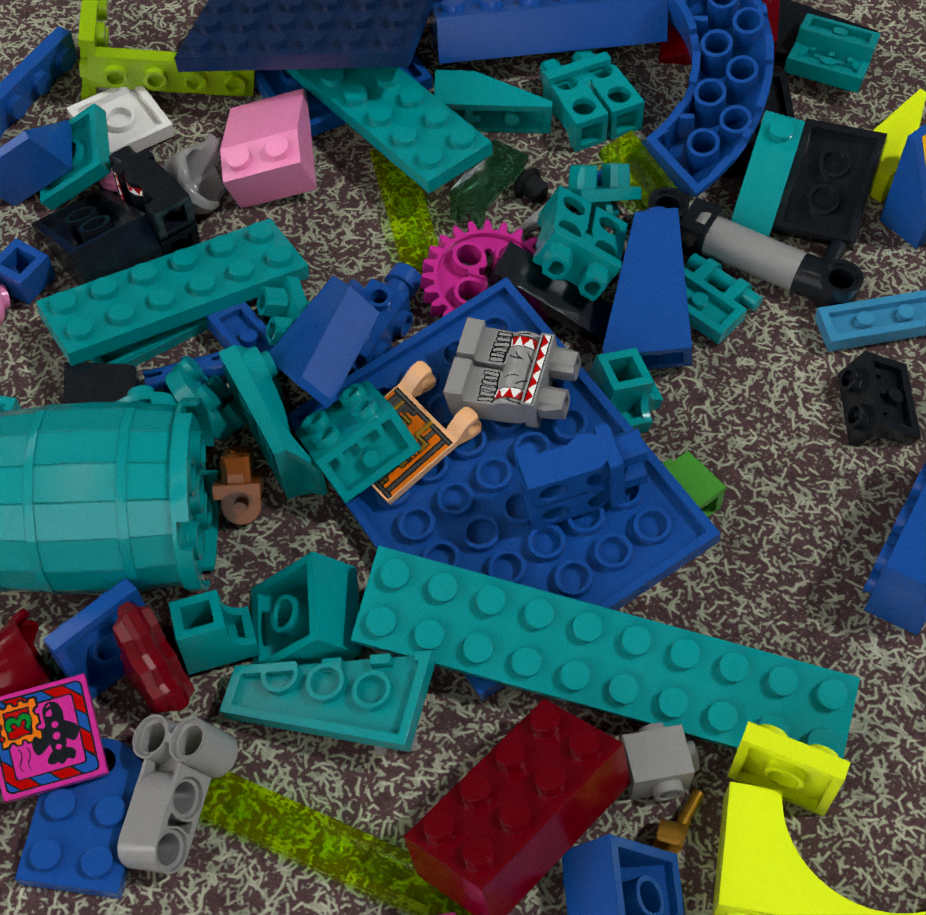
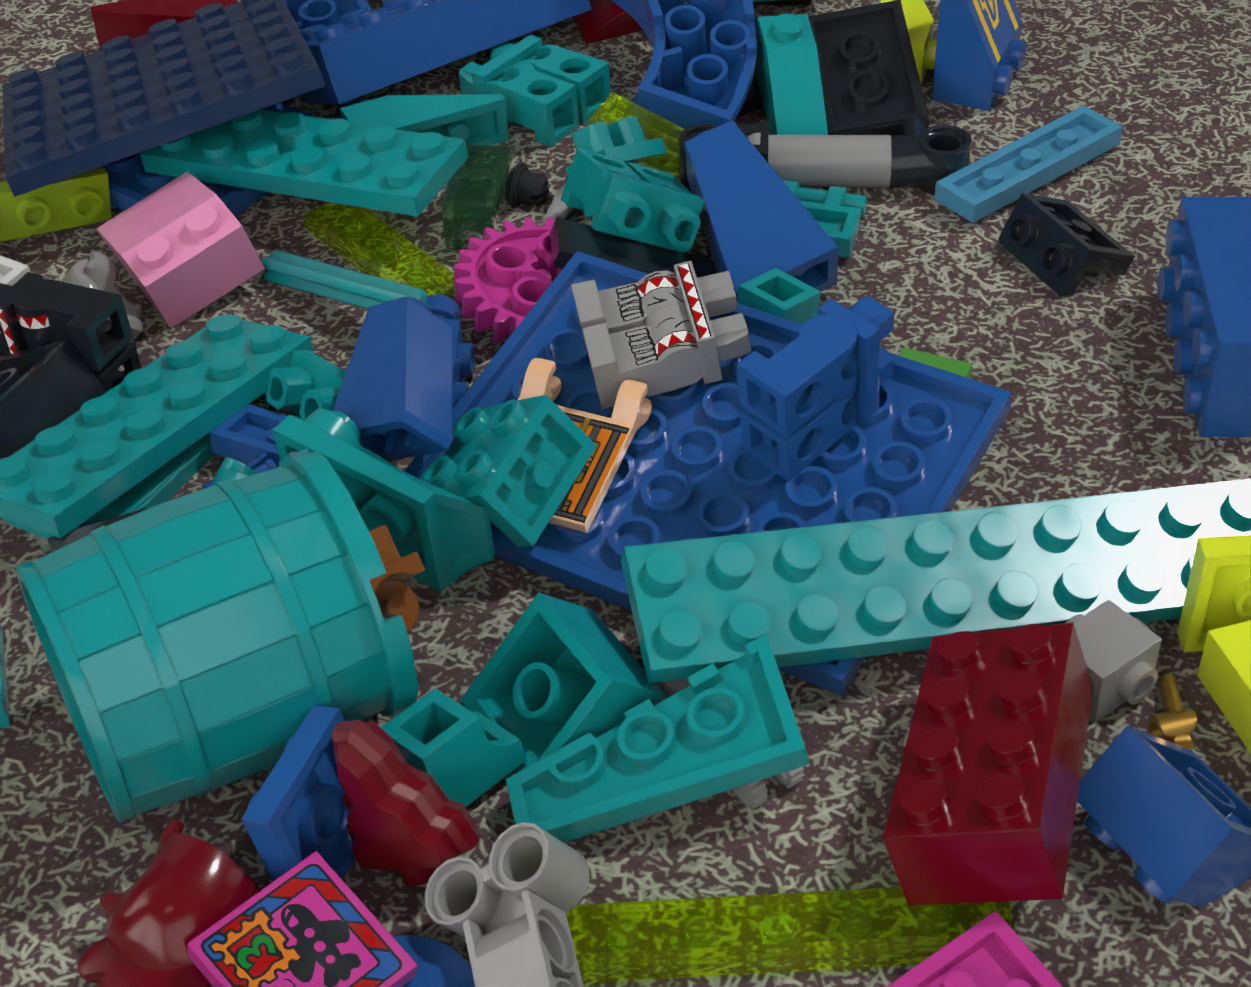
camera: 25 degrees left, 15 degrees down
(357, 229) = (334, 281): none -> teal axle

